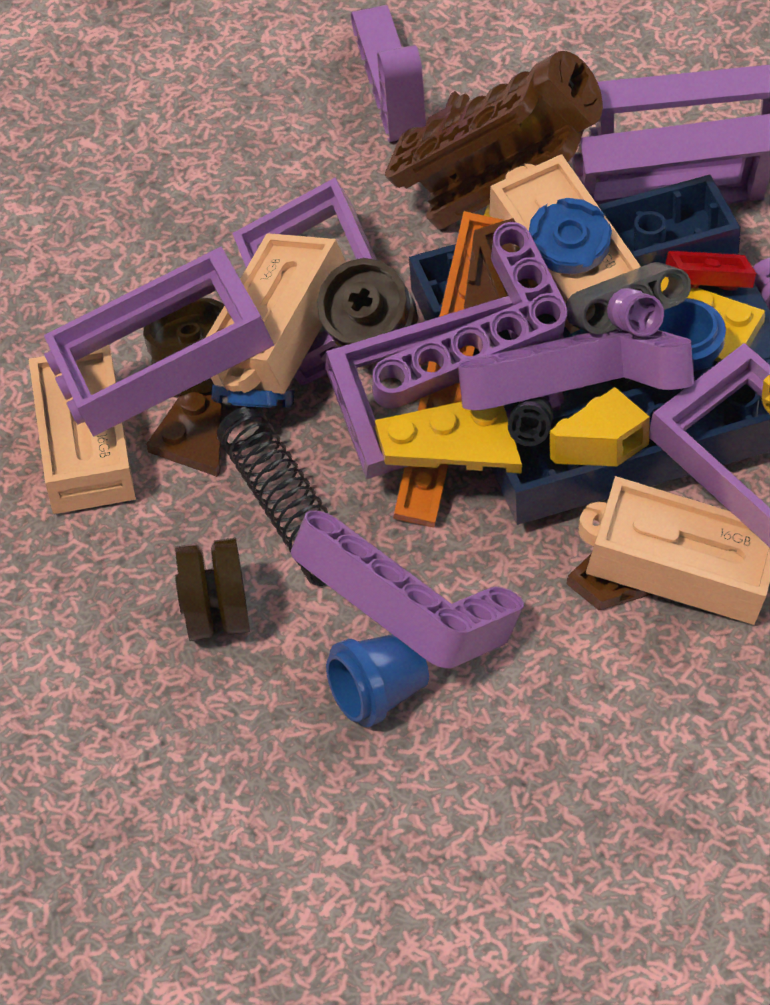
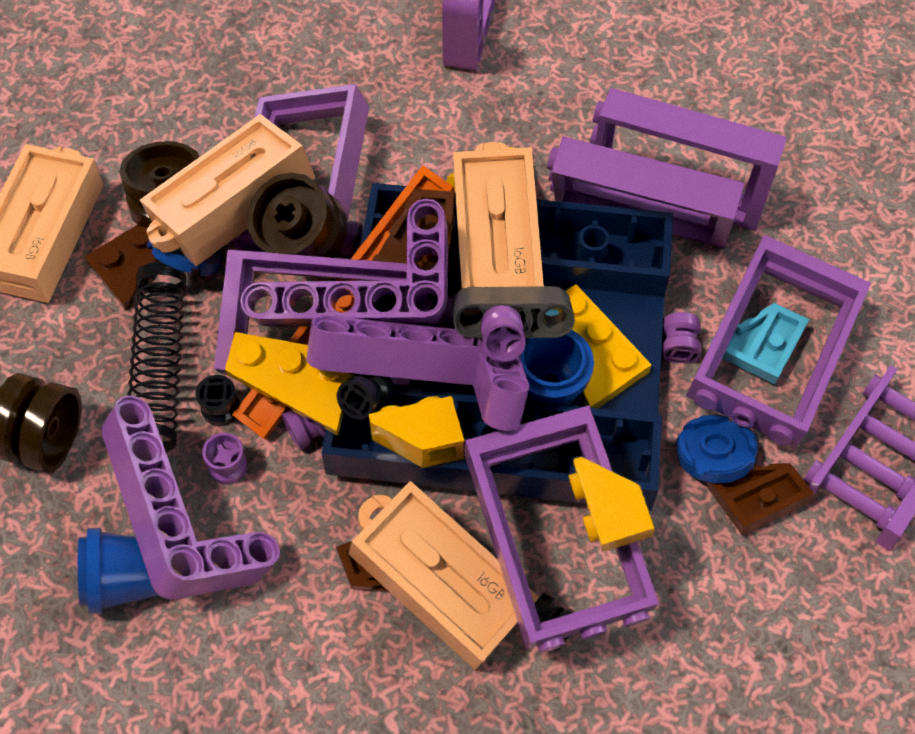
camera: 20 degrees right, 10 degrees up
(172, 374) = (161, 209): medium lavender door -> none
(371, 507) = (218, 409): none -> black wheel
(413, 549) = (223, 449): none -> medium lavender wheel
(470, 493) = (302, 429): none -> medium lavender wheel
(484, 138) = (507, 100): reddish brown piece -> none
(571, 235) = (493, 230): blue tile -> none
(714, 269) = (624, 304): red plate -> none

